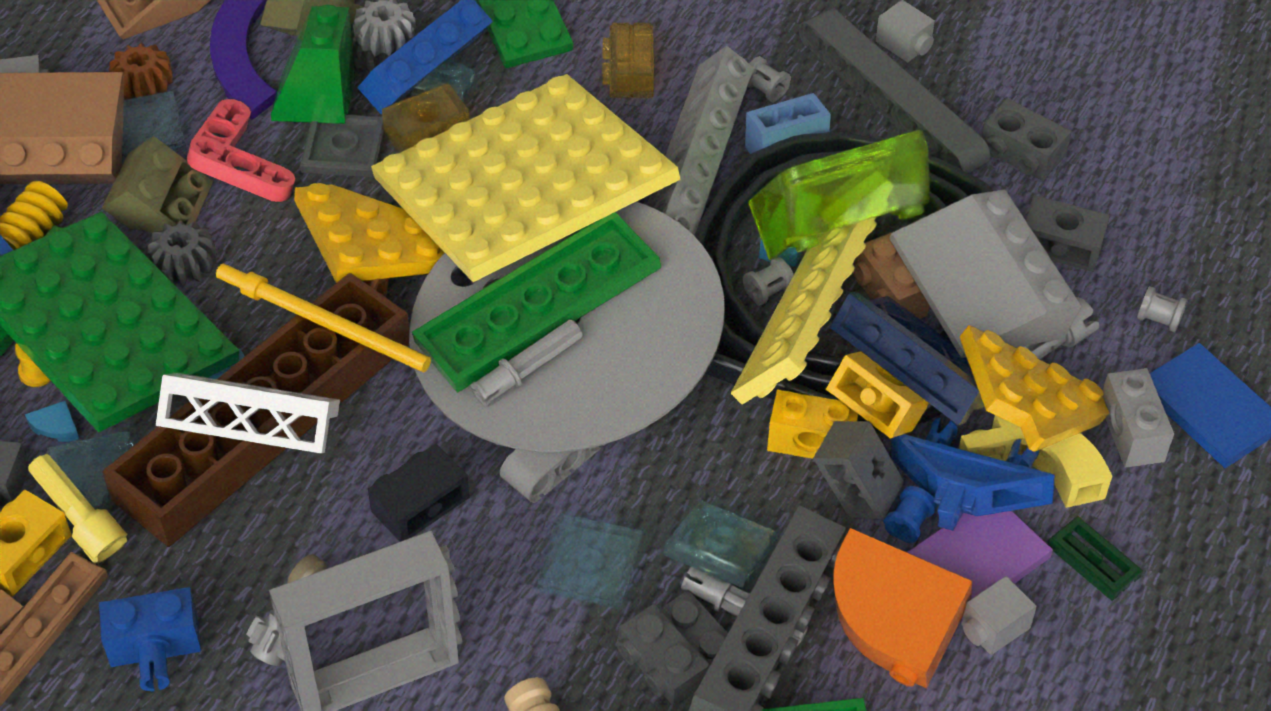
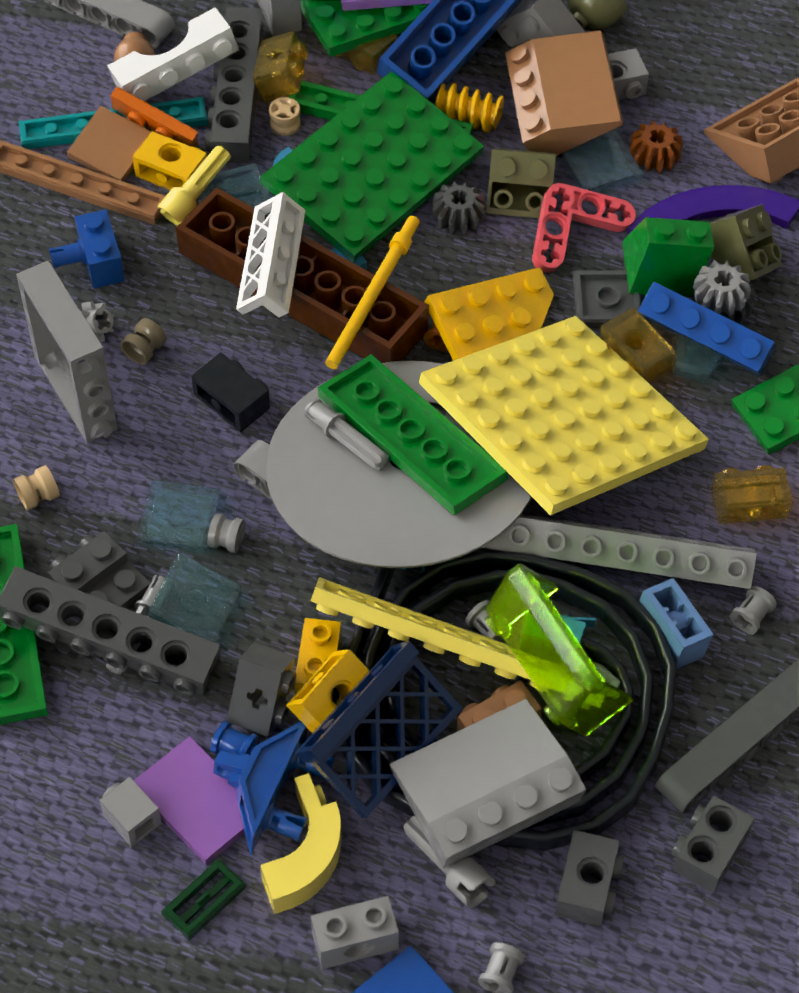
camera: 85 degrees right, 5 degrees up
(627, 505) = (226, 533): none -> light grey wheel
(897, 606) = (131, 727): orange brick -> none
(1030, 392) = (340, 816): yellow wing -> none

